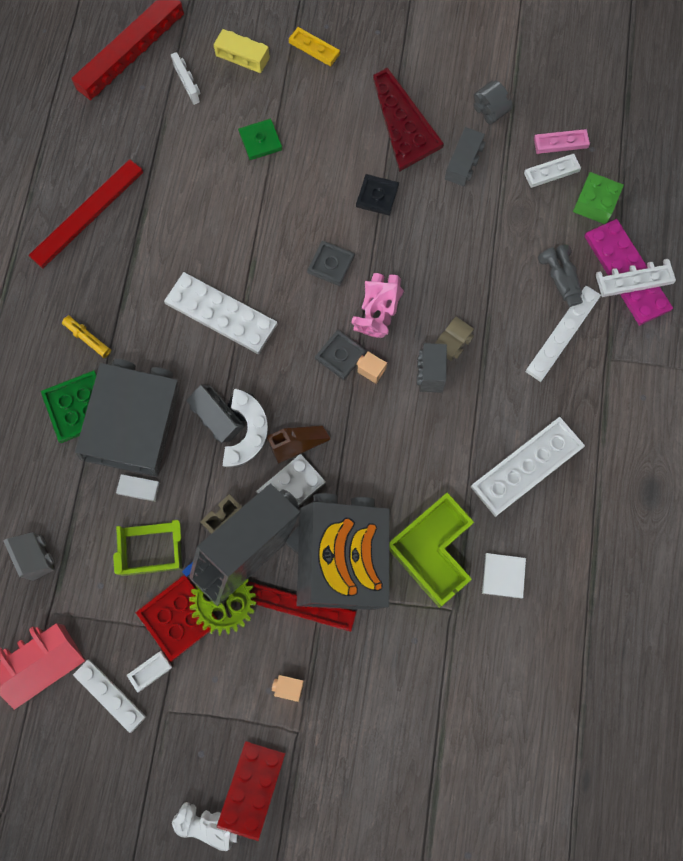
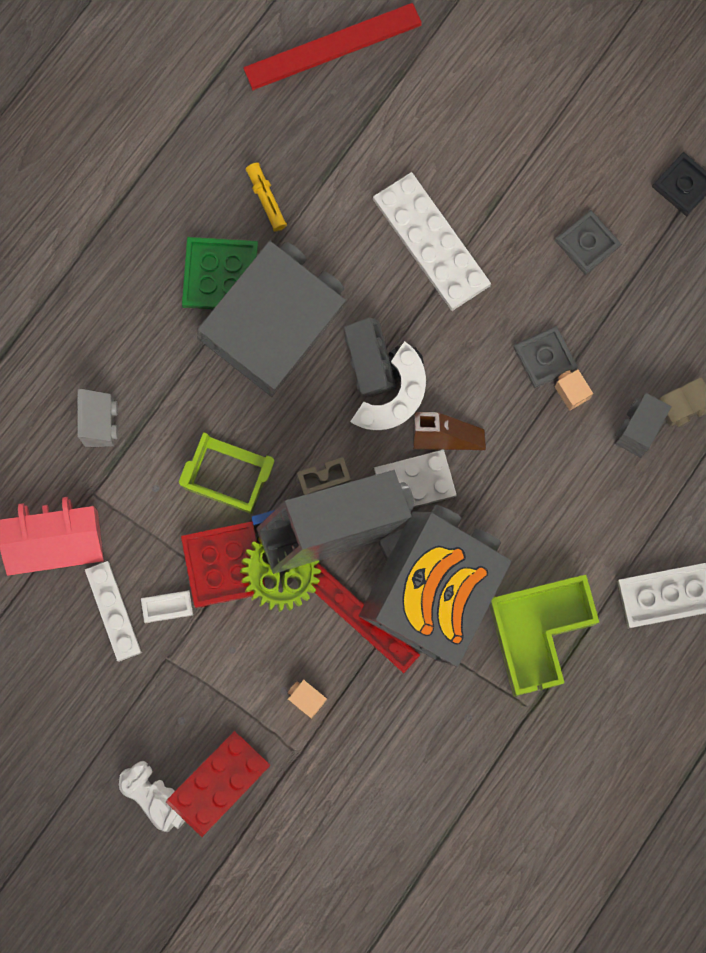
camera: 25 degrees right, 5 degrees up
(137, 487) = (245, 399): white tile -> none
(260, 139) = (578, 48): green plate -> none
(382, 295) = (628, 311): bright pink hips -> none
(504, 575) = (603, 697): white tile -> none

